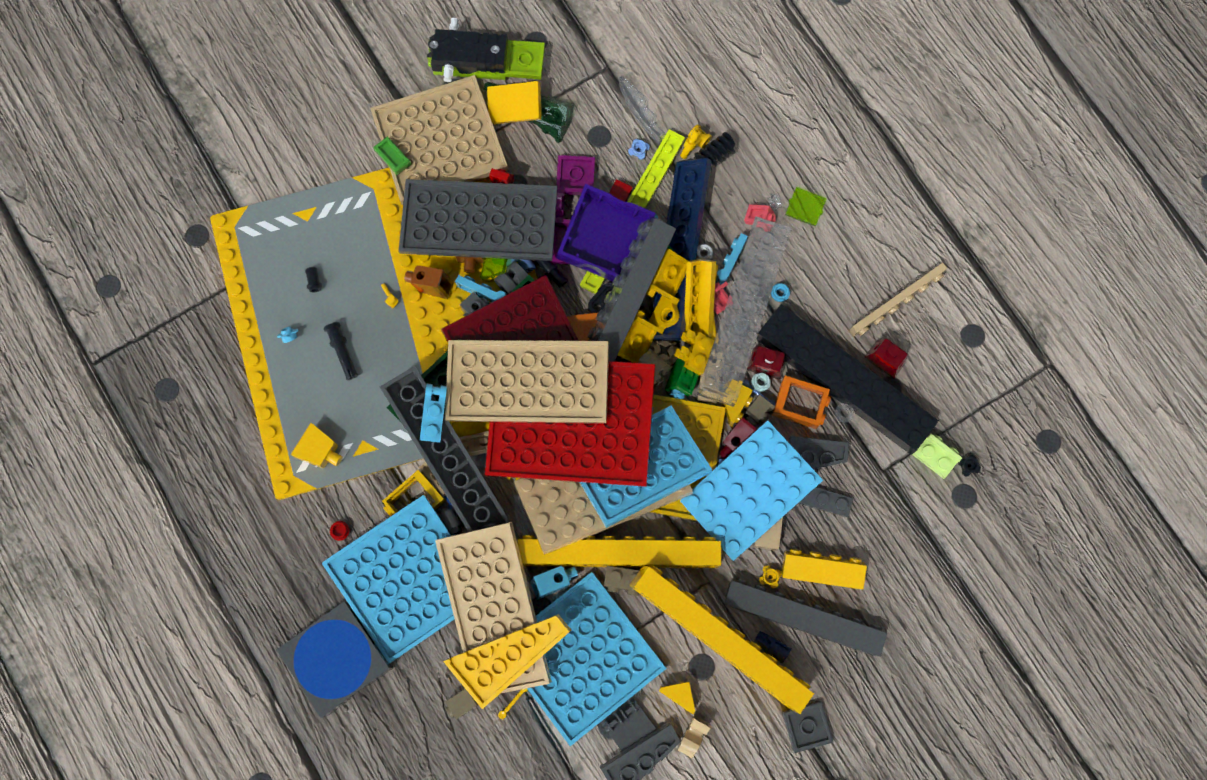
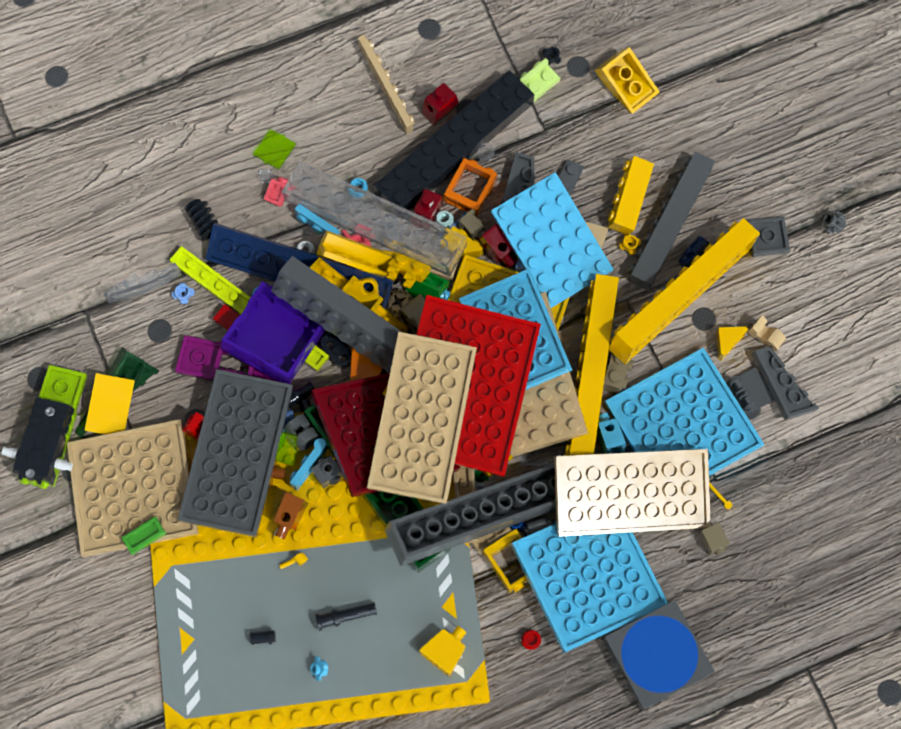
camera: 85 degrees left, 5 degrees down
(433, 414) = (439, 512): medium azure plate -> none
(497, 664) = (684, 495): yellow wing -> none
(696, 138) = (186, 235): yellow piece -> none
(958, 550) = (627, 80): none -> yellow slope

